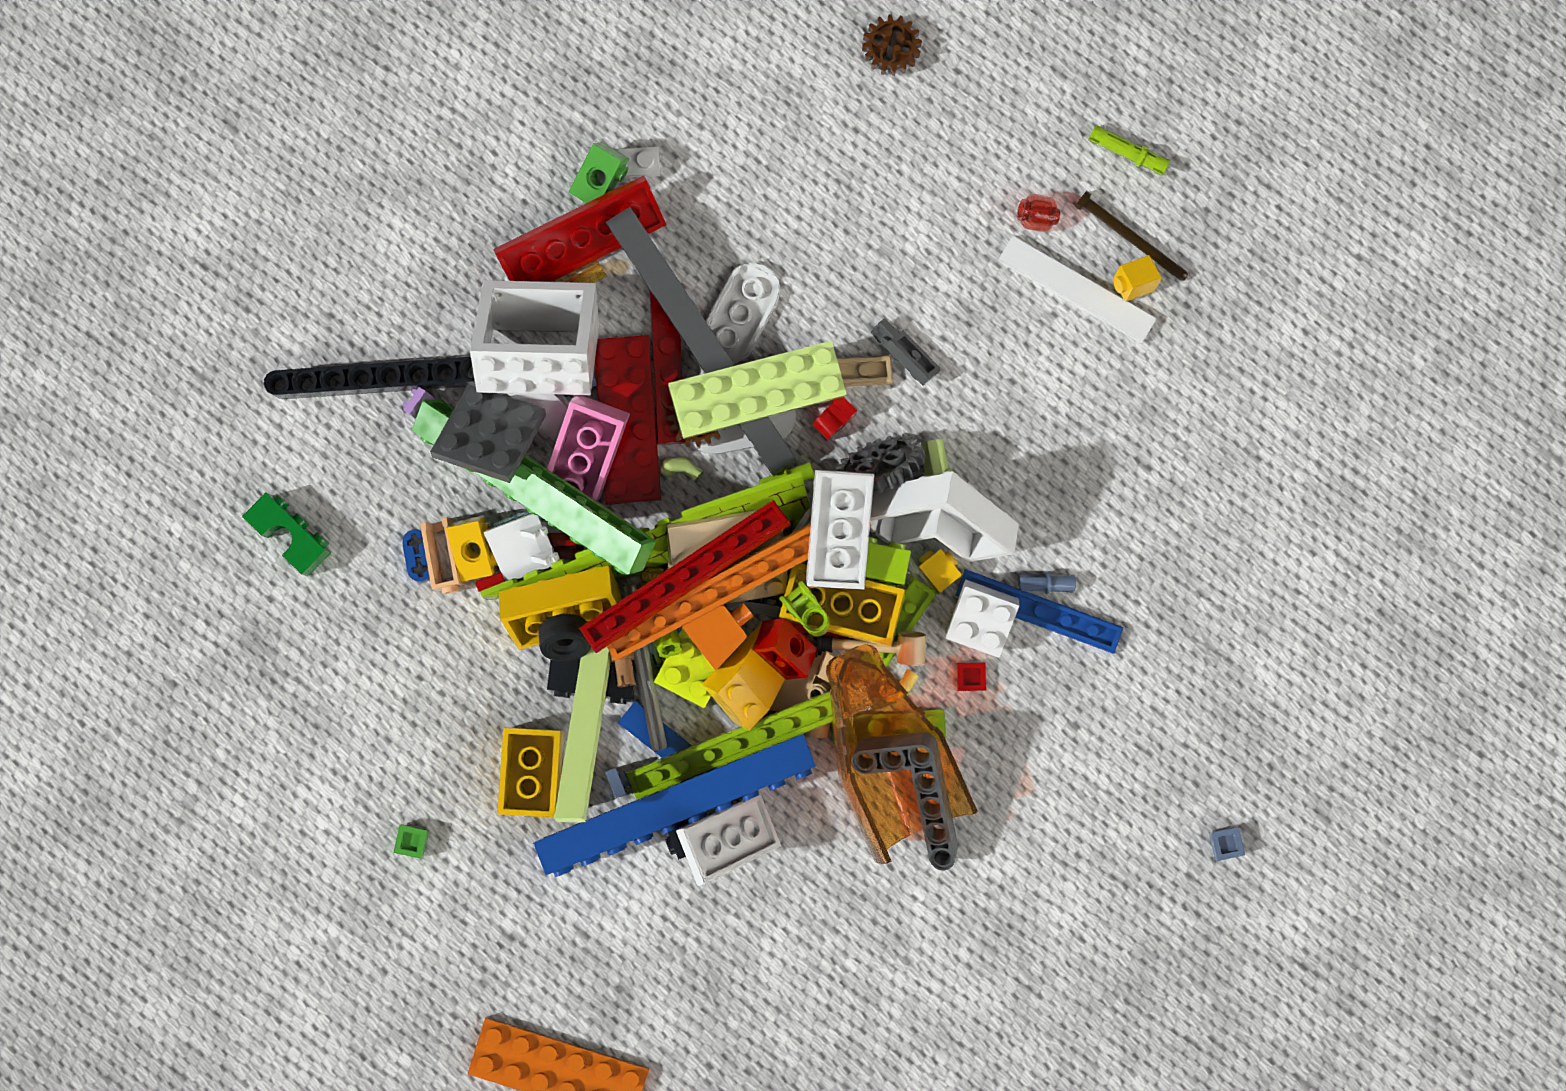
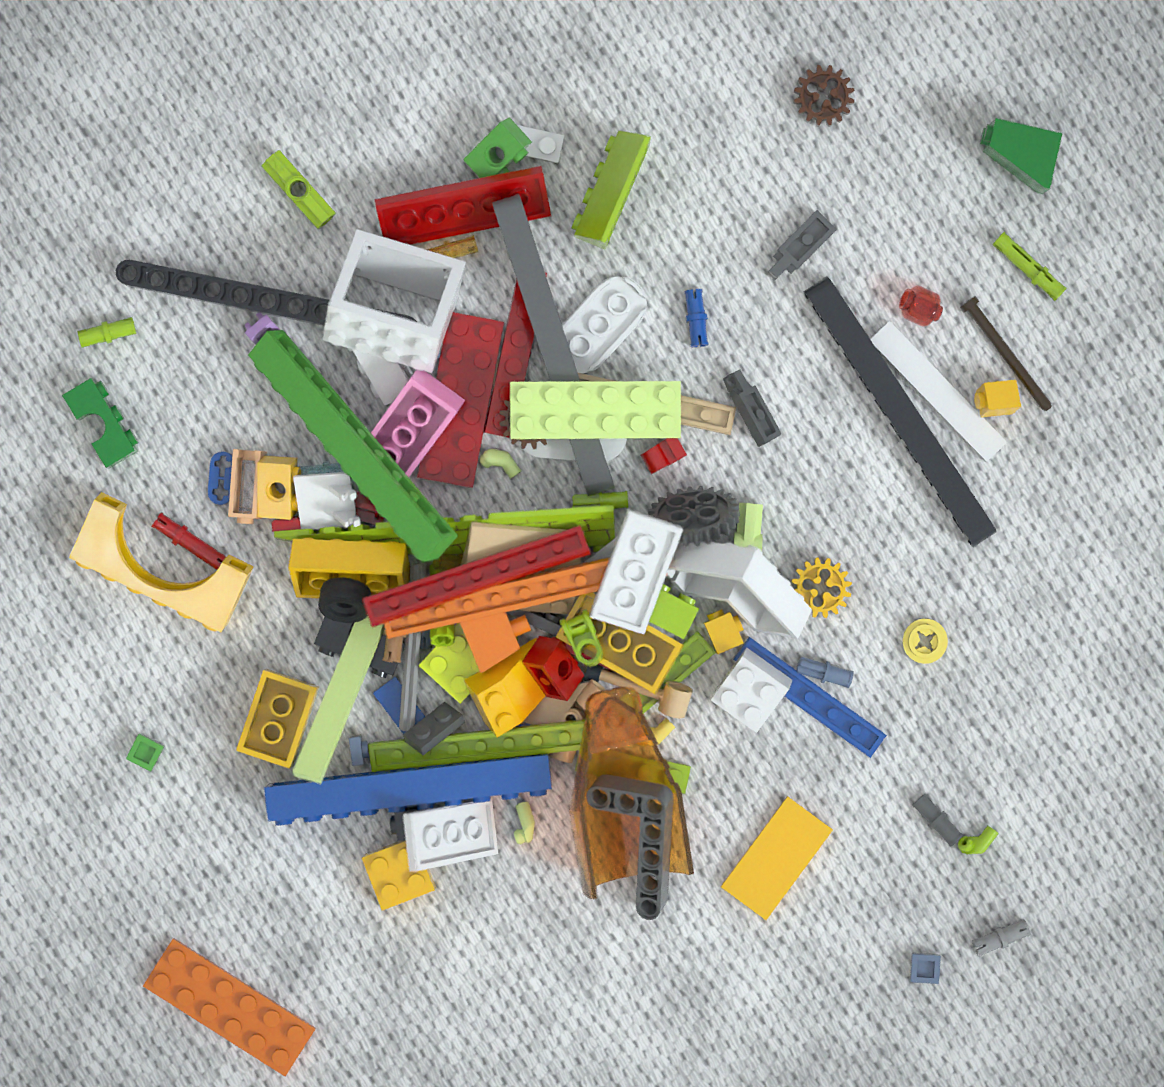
camera: 10 degrees right, 5 degrees up
(272, 447) = (106, 332): none -> lime pin
(319, 653) = (104, 549): none -> yellow arch
(404, 625) = (181, 536): none -> red pin
(408, 254) = (286, 175): none -> lime piece
(488, 433) = (323, 384): dark grey plate -> none
(684, 899) = (391, 876): none -> yellow brick
(685, 740) = (433, 728): none -> dark grey plate
(717, 179) = (612, 188): none -> lime slope
(801, 807) = (527, 822): none -> yellowish green arm
(830, 282) = (696, 318): none -> blue pin
(910, 187) = (802, 244): none -> dark grey hinge
(971, 676) = (726, 742): red tile -> none
(1032, 490) = (834, 579): none -> yellow gear
(1050, 317) = (900, 411): none -> black beam
(1051, 775) = (776, 858): none -> yellow tile
(1093, 42) = (1023, 151): none -> green slope
(1147, 526) = (938, 642): none -> light yellow gear
(1196, 695) = (937, 820): none -> dark grey pin
(1242, 708) = (977, 844): none -> lime arm
(1291, 793) = (1001, 937): none -> light grey pin

